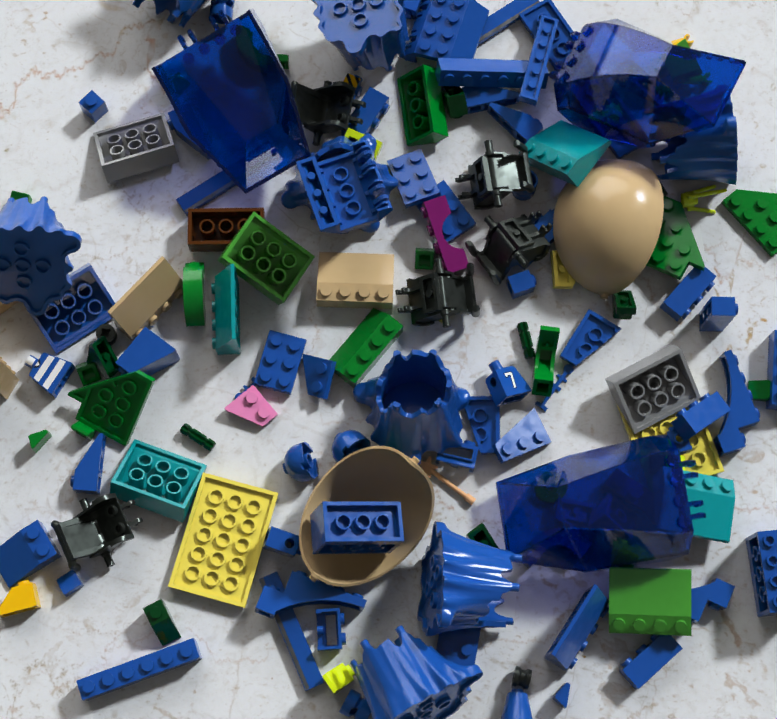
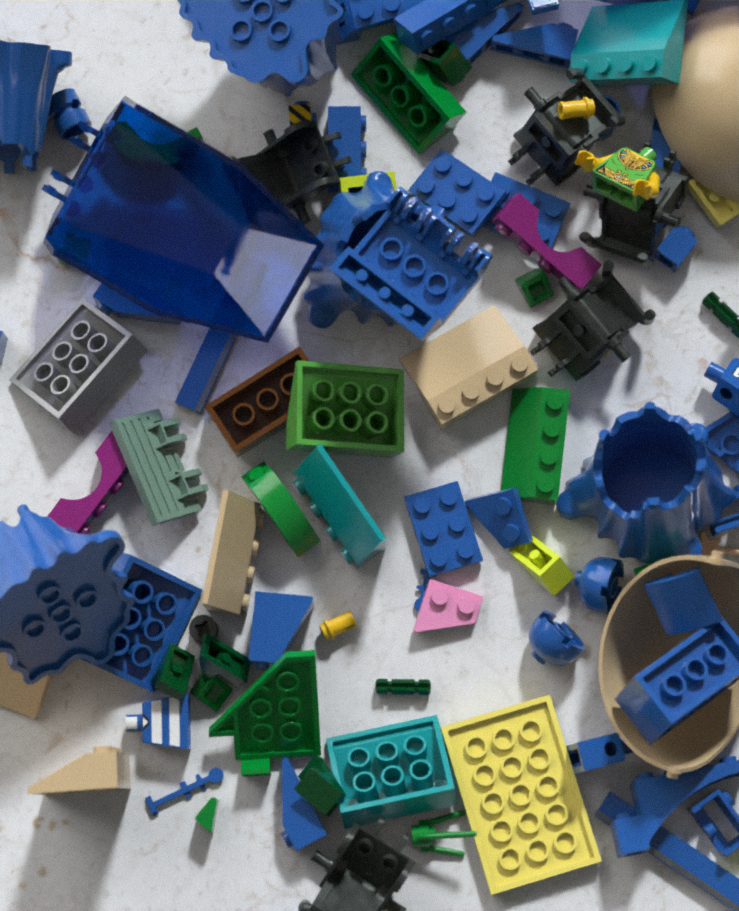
camera: 30 degrees left, 5 degrees up
(59, 421) = (215, 775): none -> blue piece
(73, 347) = (173, 672): none -> dark green slope
(109, 461) = (320, 786): none -> dark green slope
(120, 212) = (80, 512): none -> magenta arch
(137, 230) = (155, 468): none -> sand green hinge
(154, 529) = (424, 835): none -> green plant
(183, 379) = (337, 625): none -> yellow pin
(323, 417) = (543, 565): none -> neon yellow slope
(383, 479) = (683, 601): none -> blue slope
(508, 166) = (574, 109): none -> yellow pin
(510, 220) = (623, 176): none -> torso

